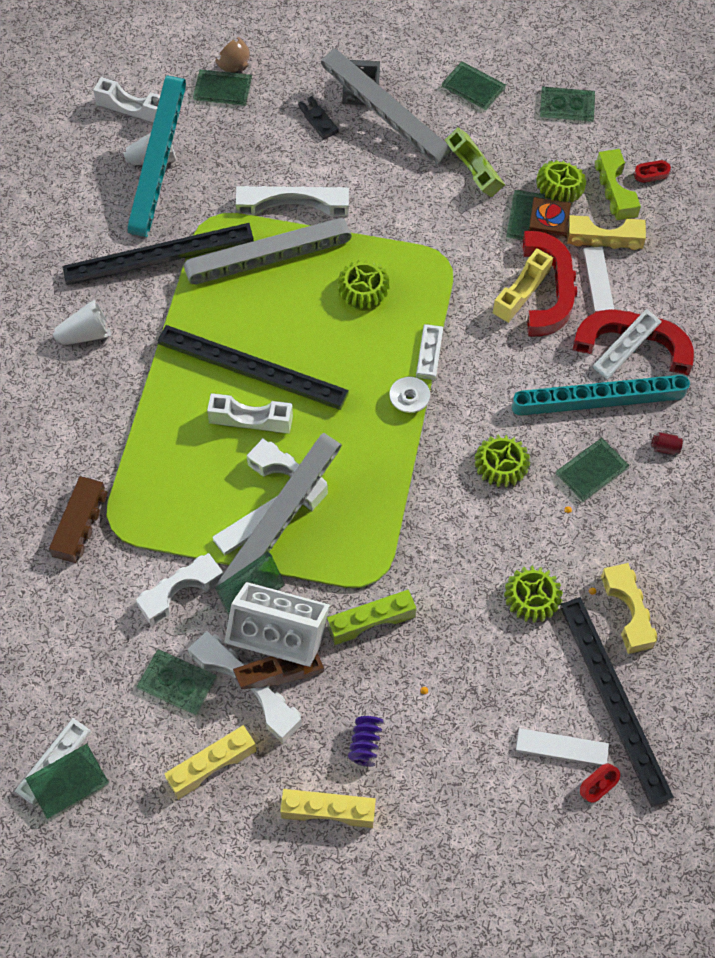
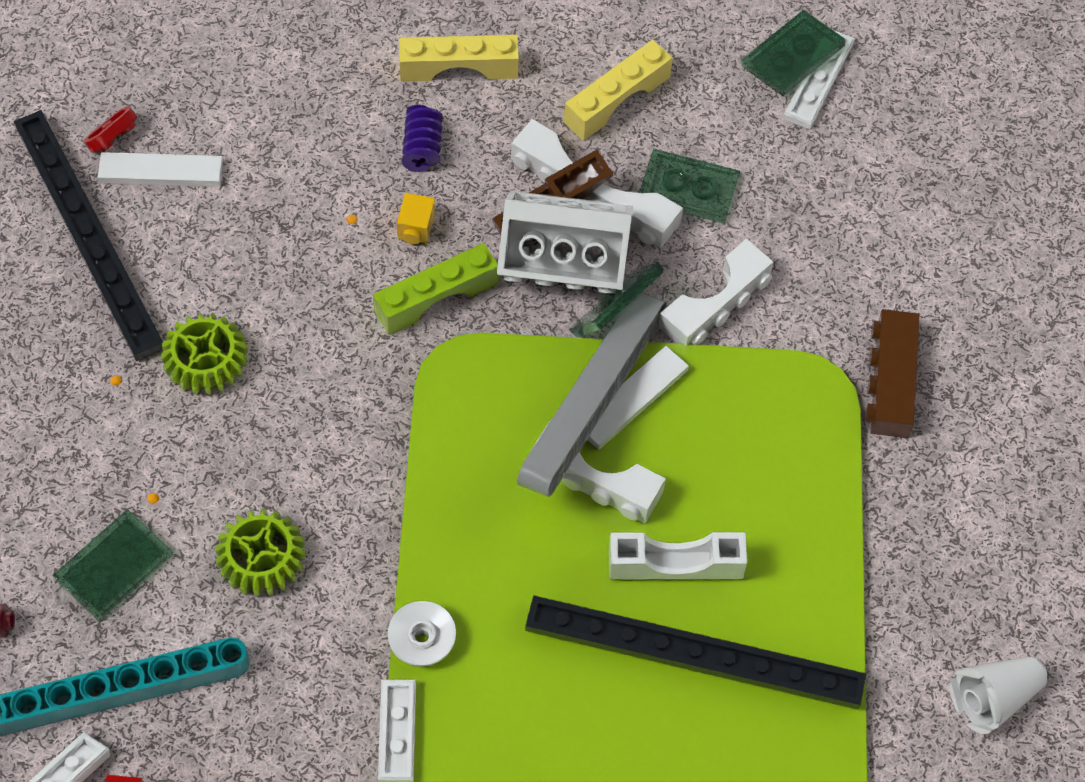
camera: 170 degrees right, 0 degrees up
(378, 675) = (416, 218): none -> yellow brick
(620, 583) = (74, 381): light yellow arch -> none

